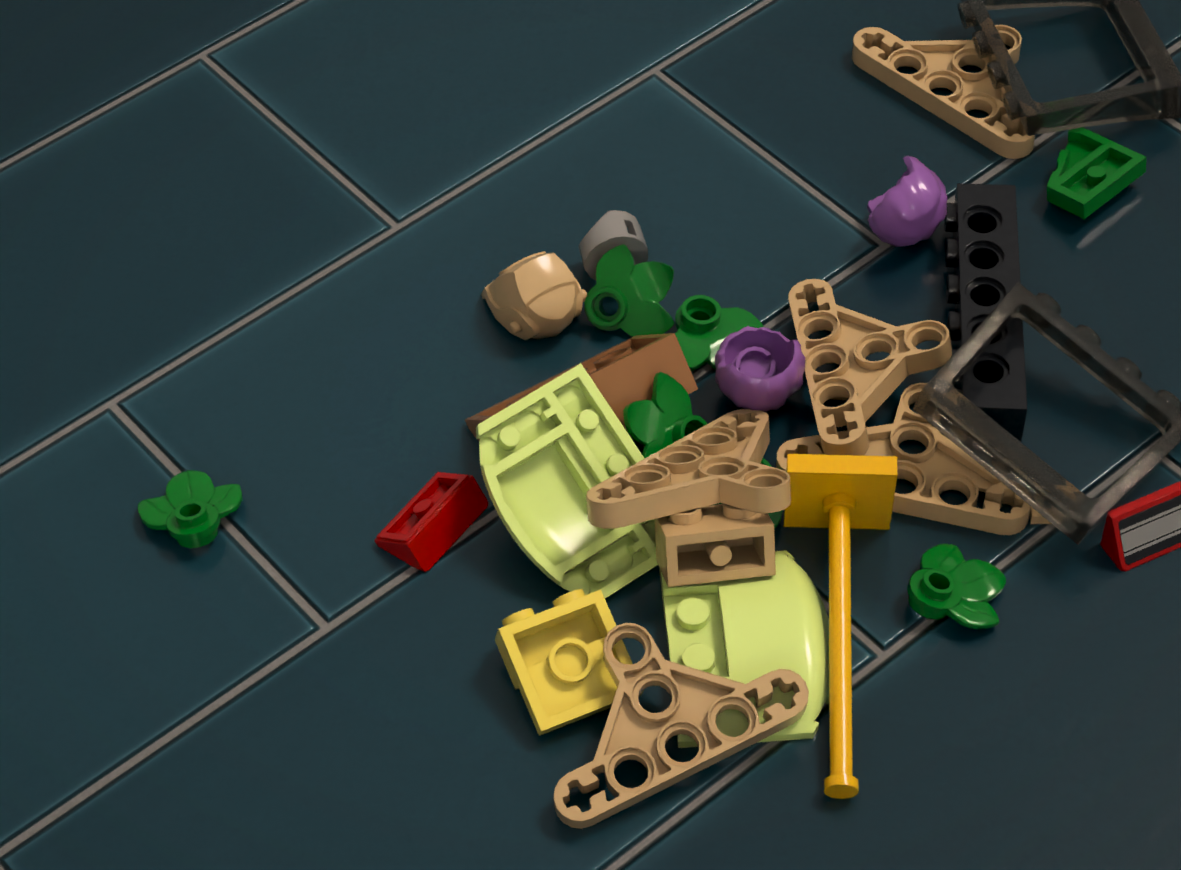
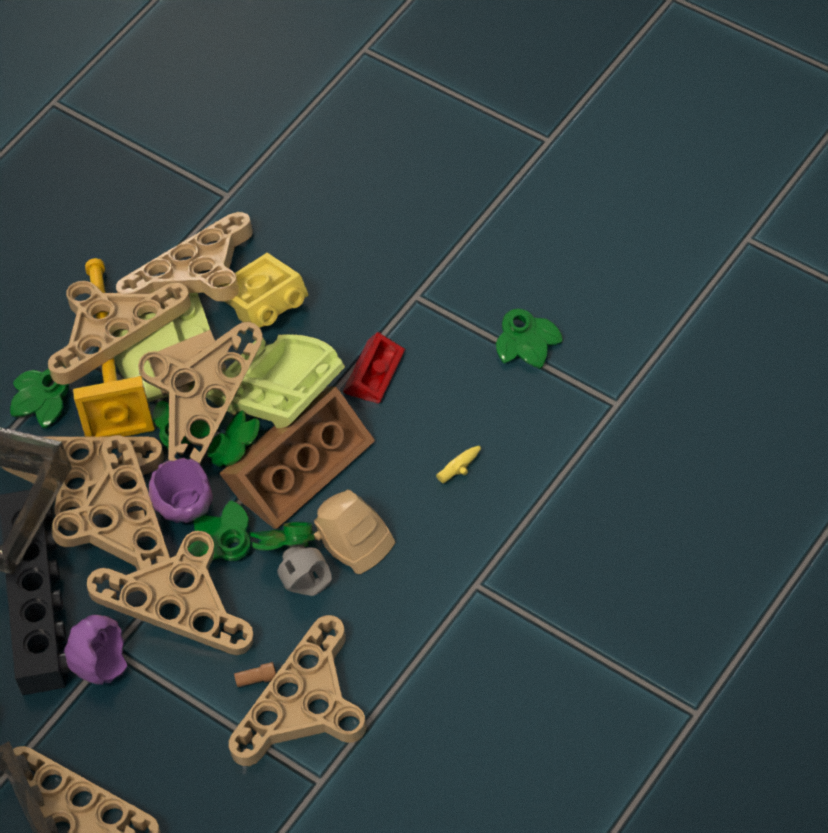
camera: 170 degrees right, 5 degrees up
(361, 361) = (458, 464): none -> light yellow helmet
(668, 125) = (293, 714): none -> tan beam
(695, 173) = (255, 675): none -> medium nougat piece
(802, 635) = (124, 313): none -> tan beam
(807, 263) = (160, 589): none -> tan beam

